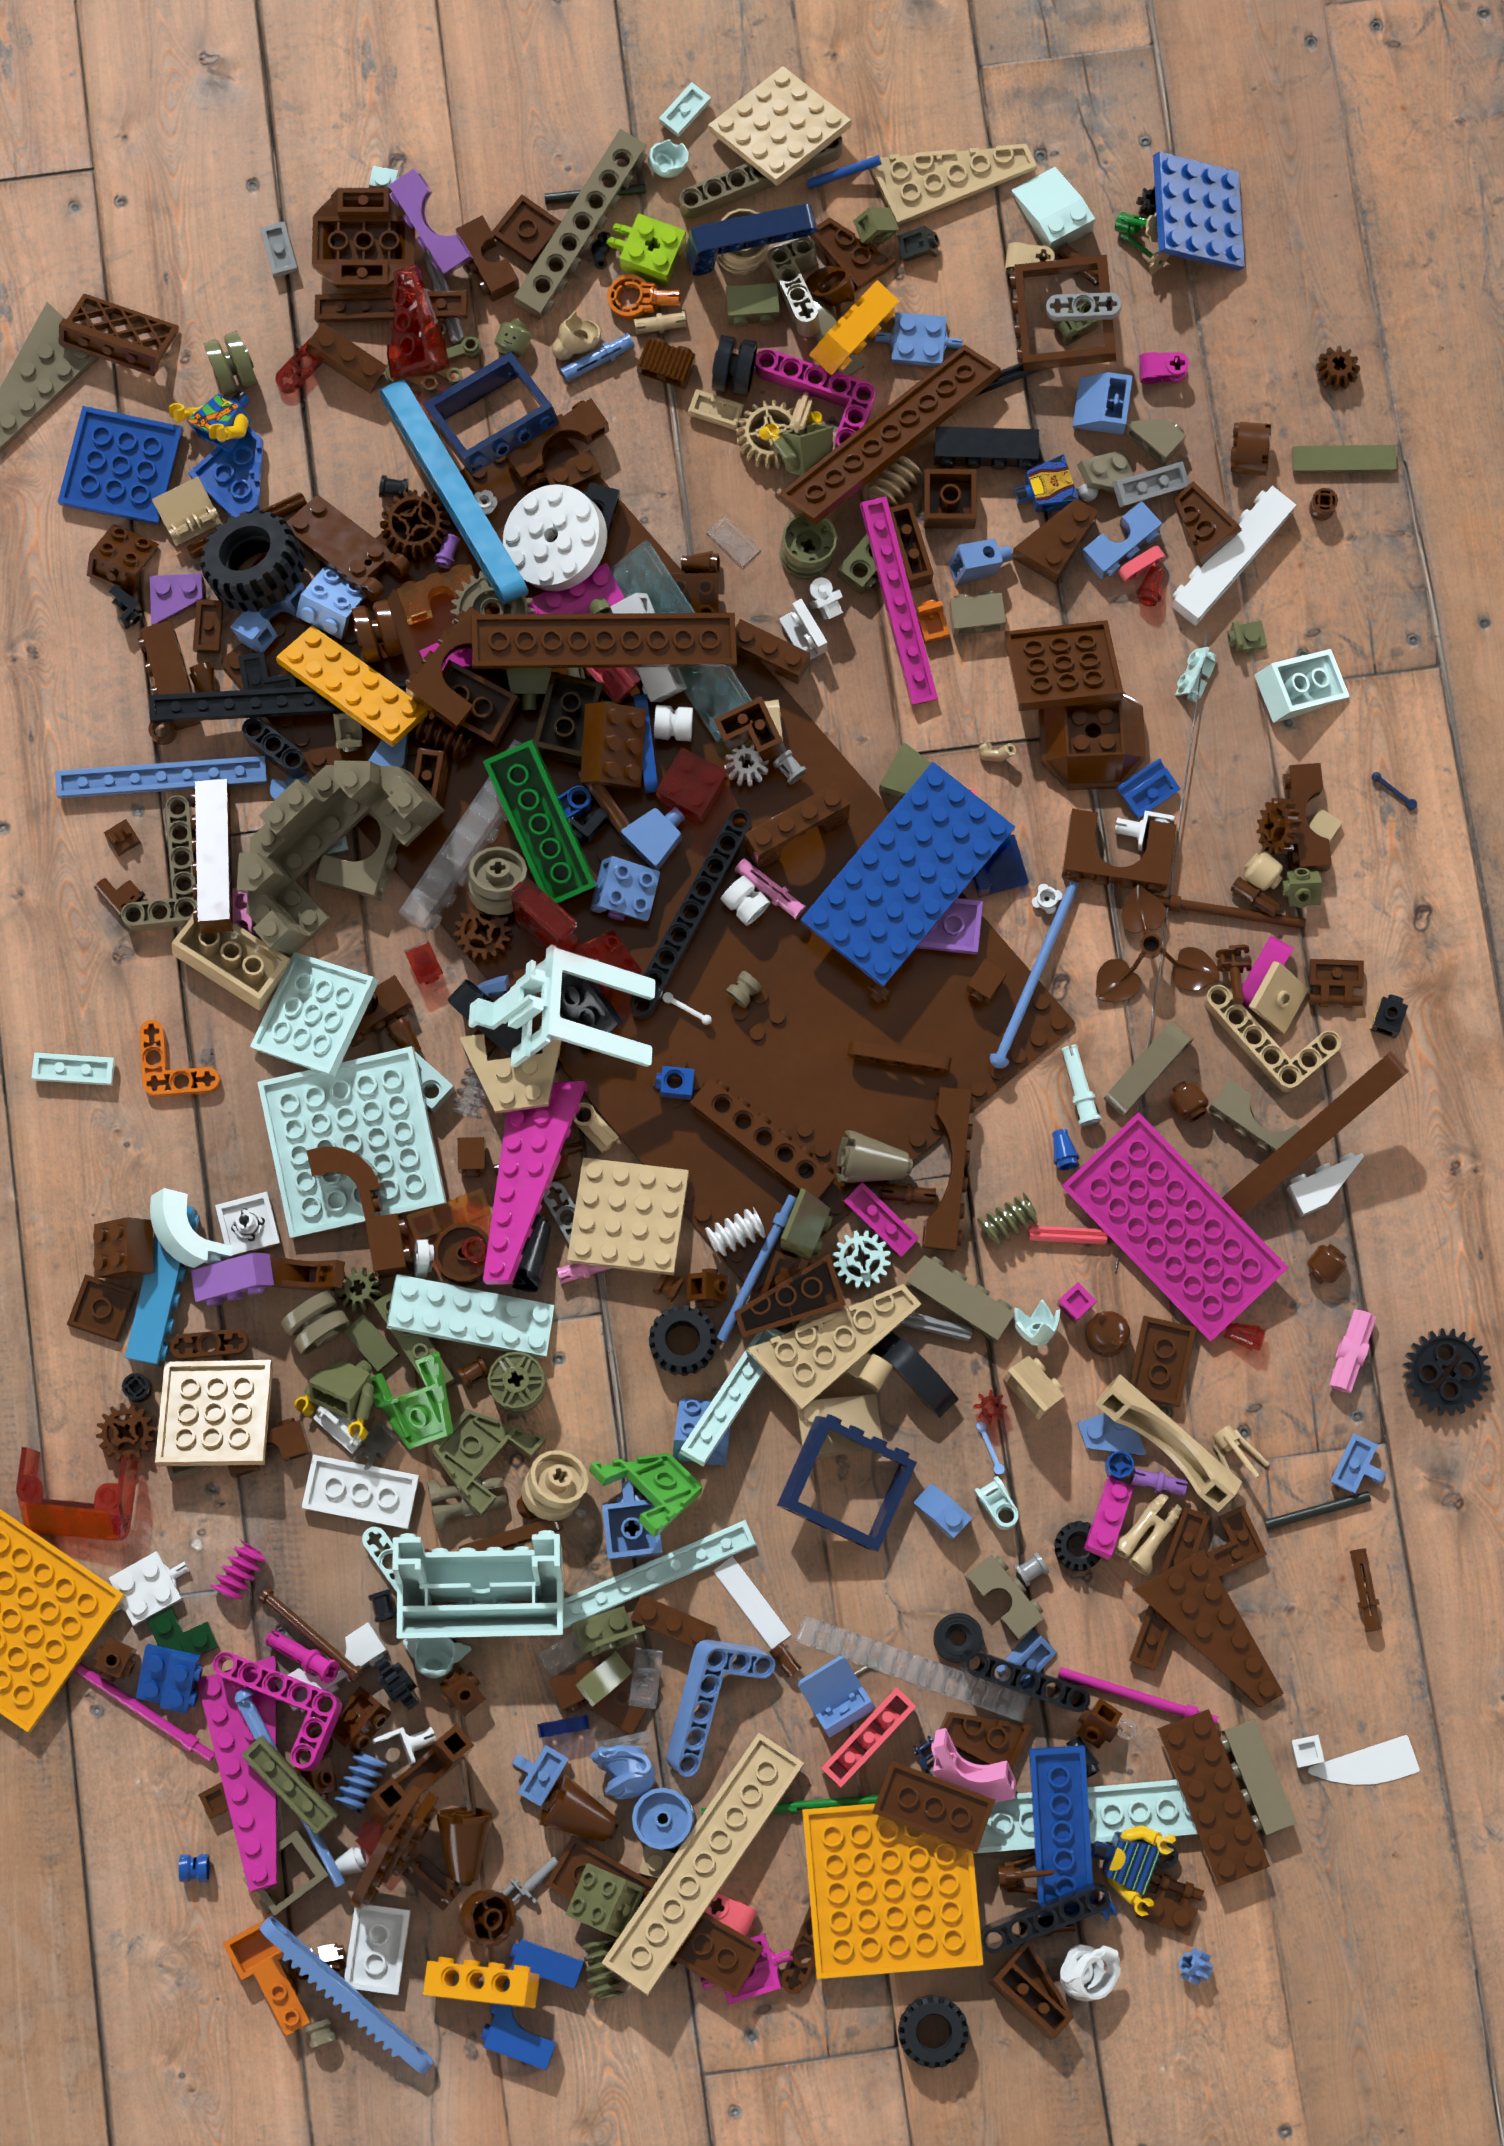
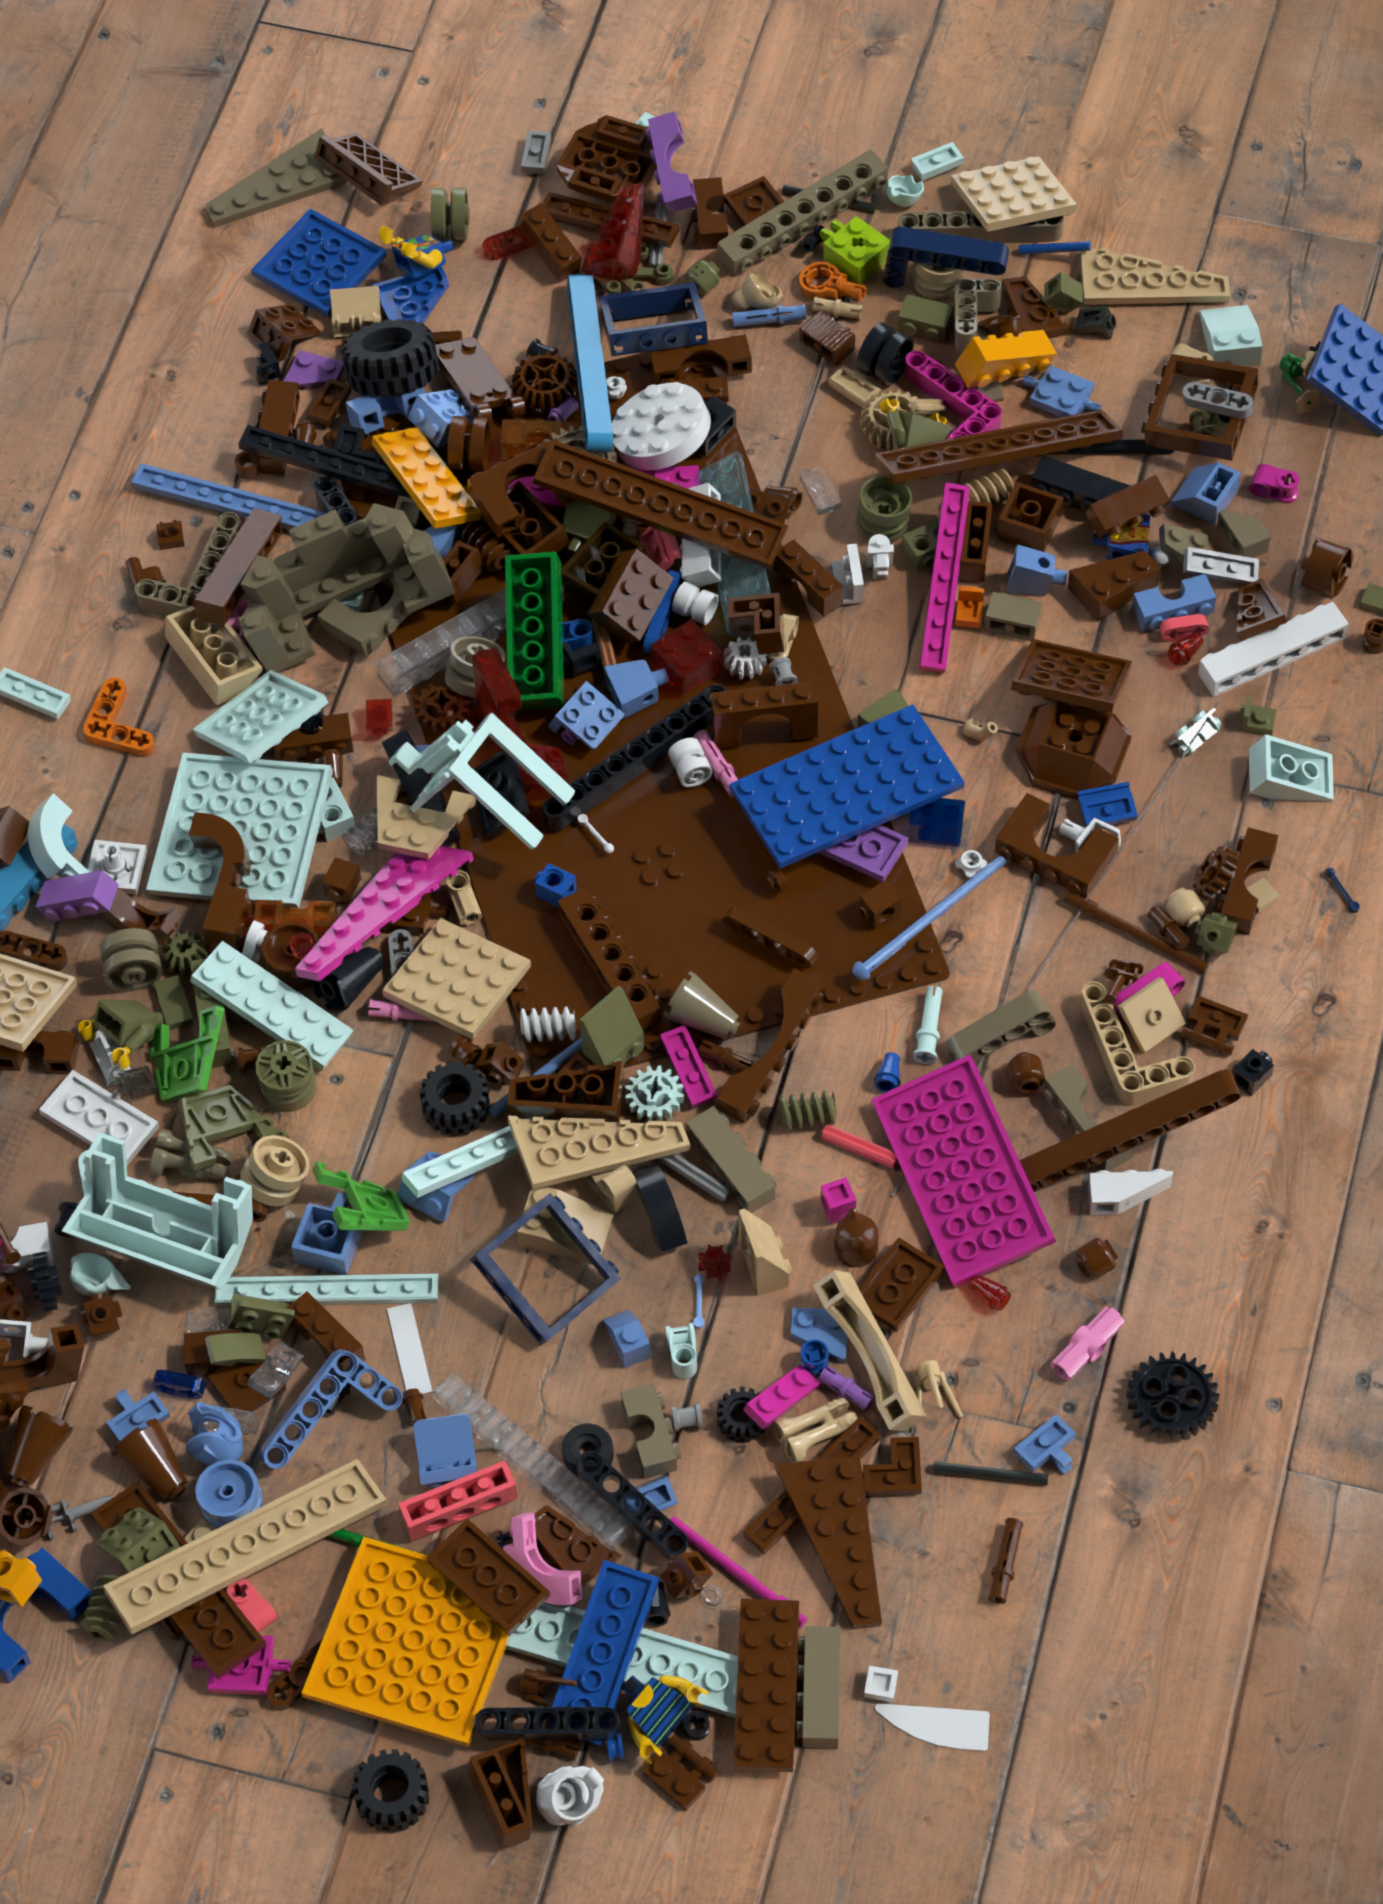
camera: 25 degrees right, 20 degrees down
(745, 988) = (655, 832): dark tan wheel -> none
(1039, 1327) = (792, 1212): light aqua piece -> none
(1044, 459) = (1128, 507): none -> reddish brown brick
(1143, 913) = (1051, 904): reddish brown plant -> none
(1195, 1966) = (677, 1836): medium blue gear -> none

